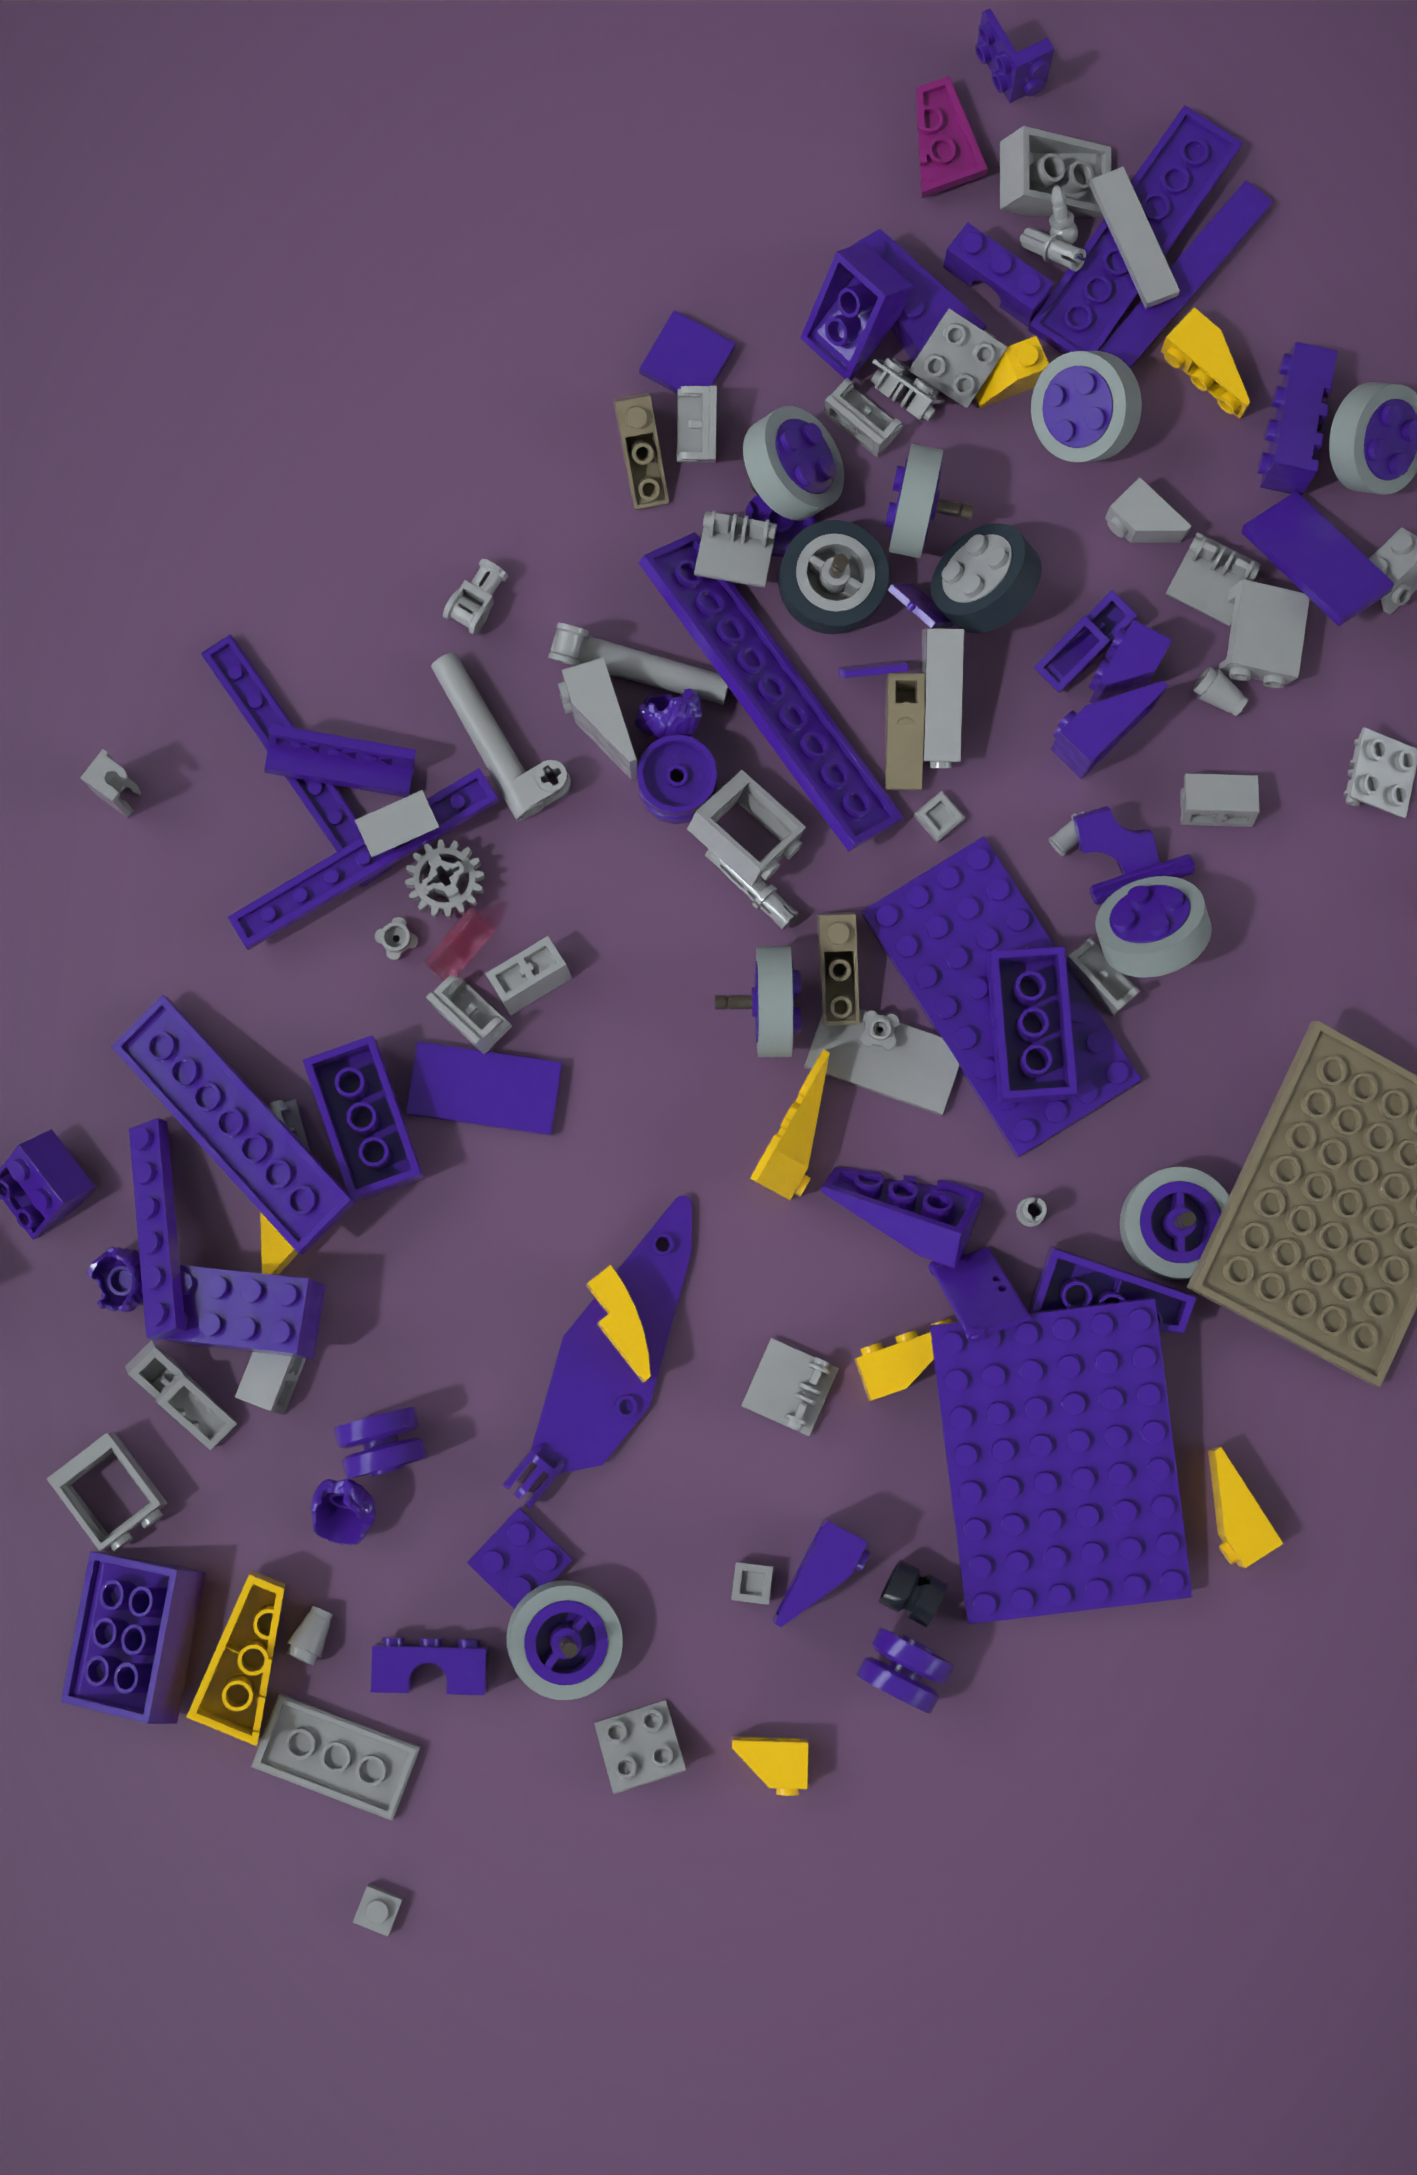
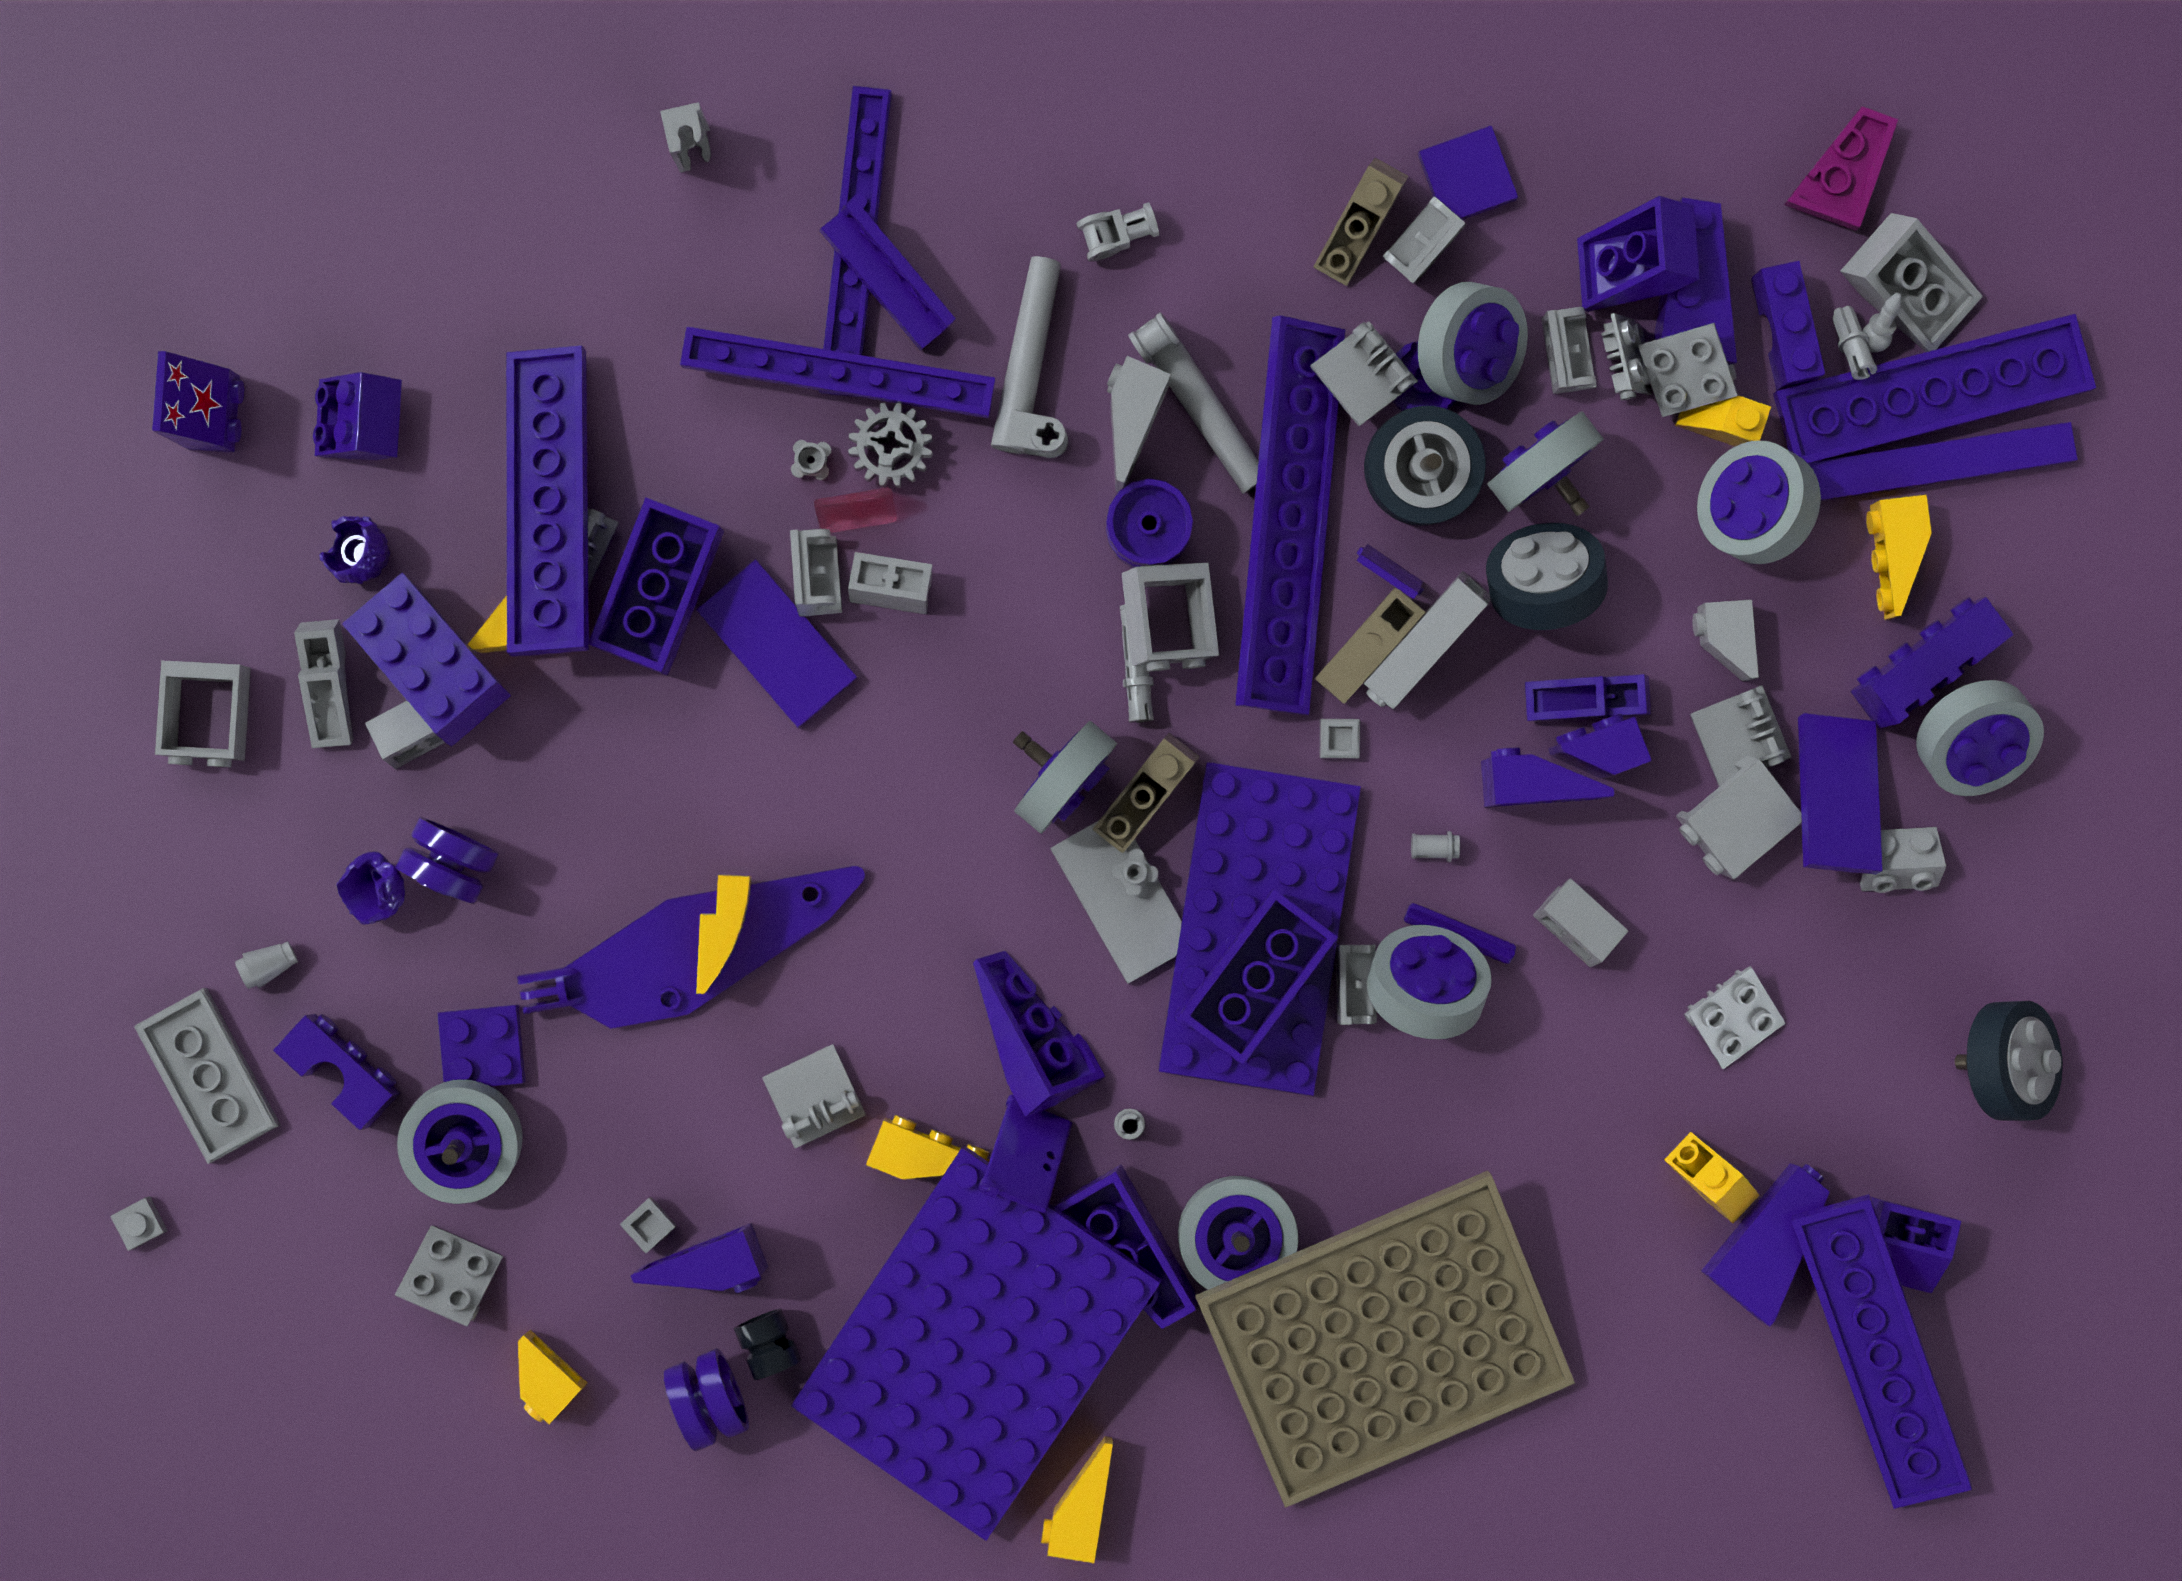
camera: 35 degrees right, 5 degrees up
(133, 1638) = (126, 845): dark purple slope -> none
(157, 1230) = (415, 535): dark purple plate -> none
(240, 1669) = (183, 946): yellow wedge -> none
(396, 823) = (885, 368): light grey hinge -> none
(669, 716) = (1187, 468): dark purple hair -> none
(789, 1151) = (973, 910): yellow wedge -> none
(920, 605) = (1474, 550): dark purple piece -> none
(1012, 72) = (1952, 165): dark purple bracket -> none
(1101, 833) = (1457, 868): dark purple tile -> none
(1134, 237) = (1930, 392): light grey tile -> none
(1219, 691) = (1661, 834): light grey cone -> none

